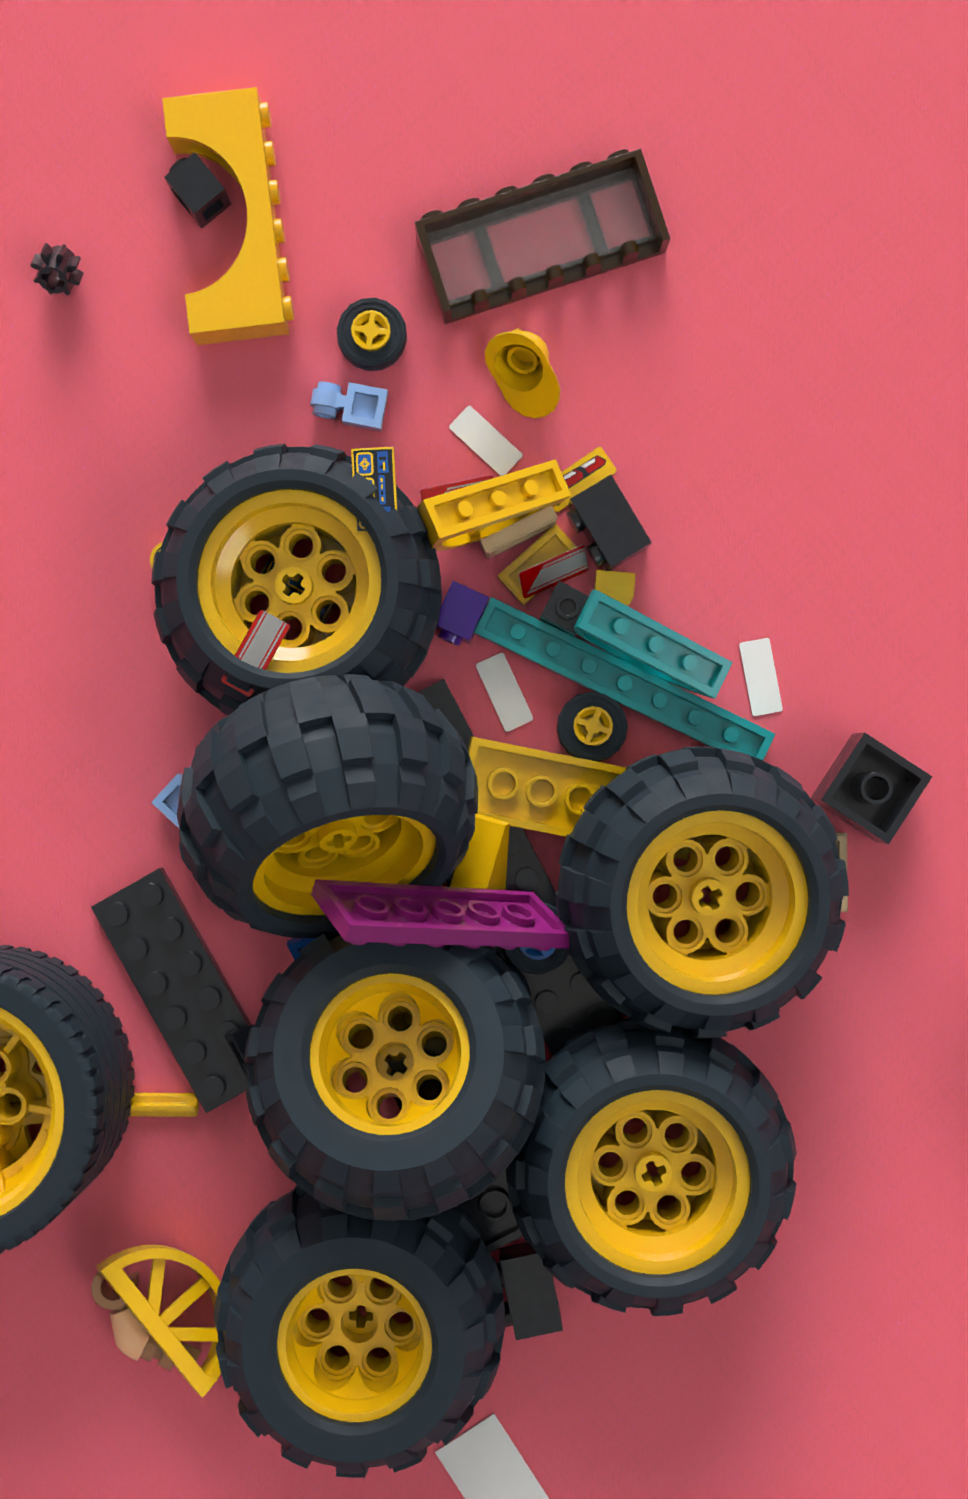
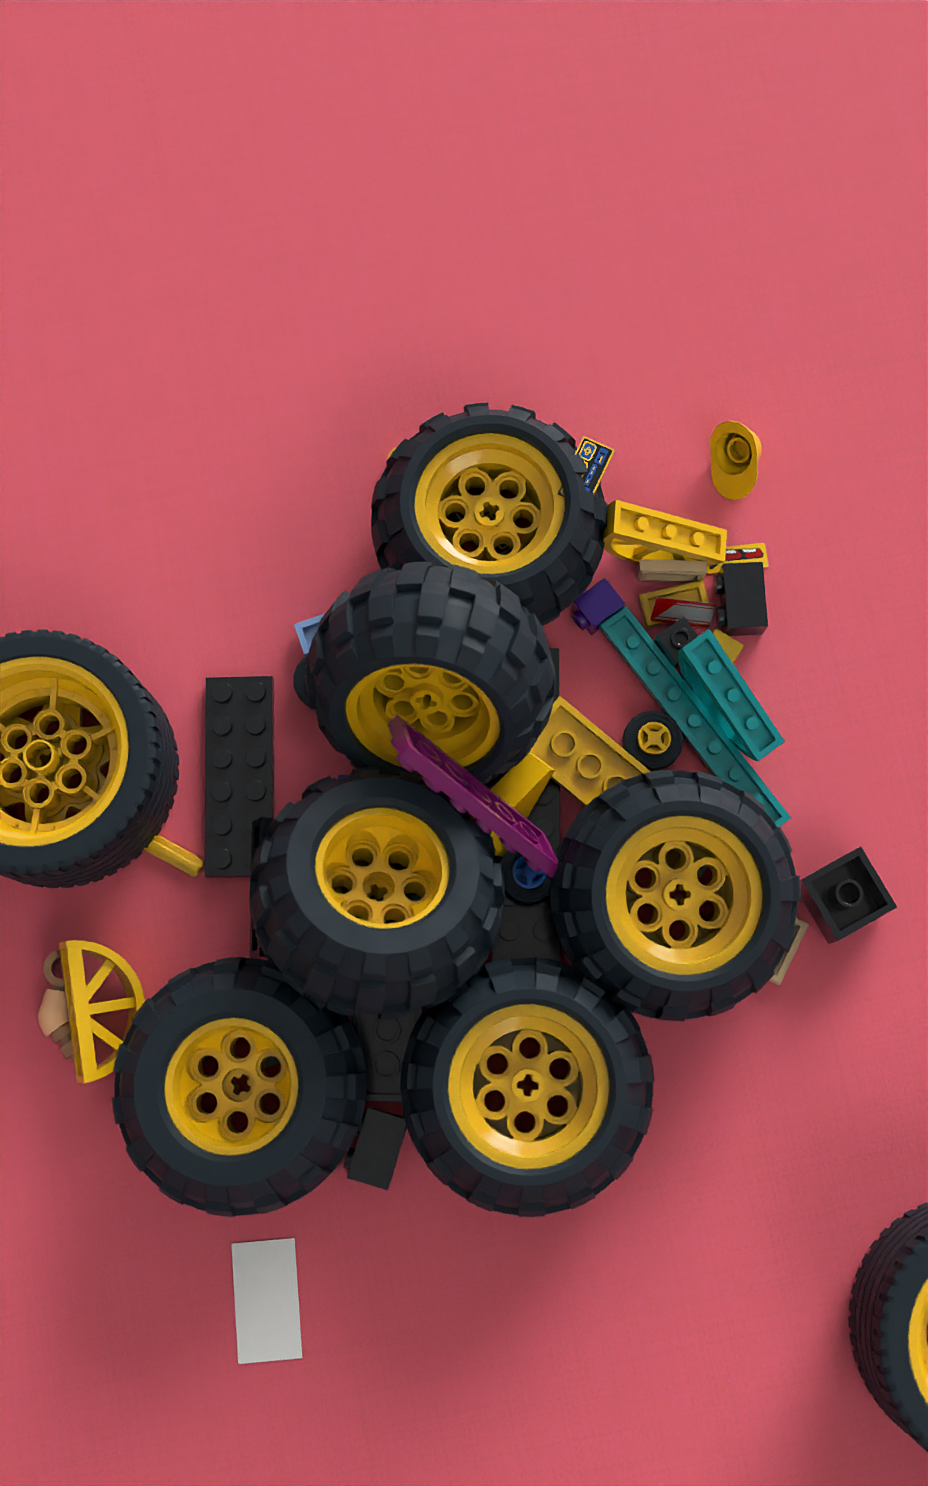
camera: 30 degrees right, 10 degrees down
(57, 269) = (438, 230): black gear -> none
(197, 189) = (564, 220): black brick -> none
(251, 294) = (564, 308): yellow arch -> none
(260, 643) = (446, 534): light grey sticker -> none
(362, 405) = (601, 425): light blue plate -> none
(371, 319) = (633, 368): black wheel -> none
(485, 441) = (680, 494): white sticker -> none
(504, 692) = (599, 683): white sticker -> none
(542, 235) = (798, 373): clear window -> none
(760, 677) = (801, 773): white sticker -> none

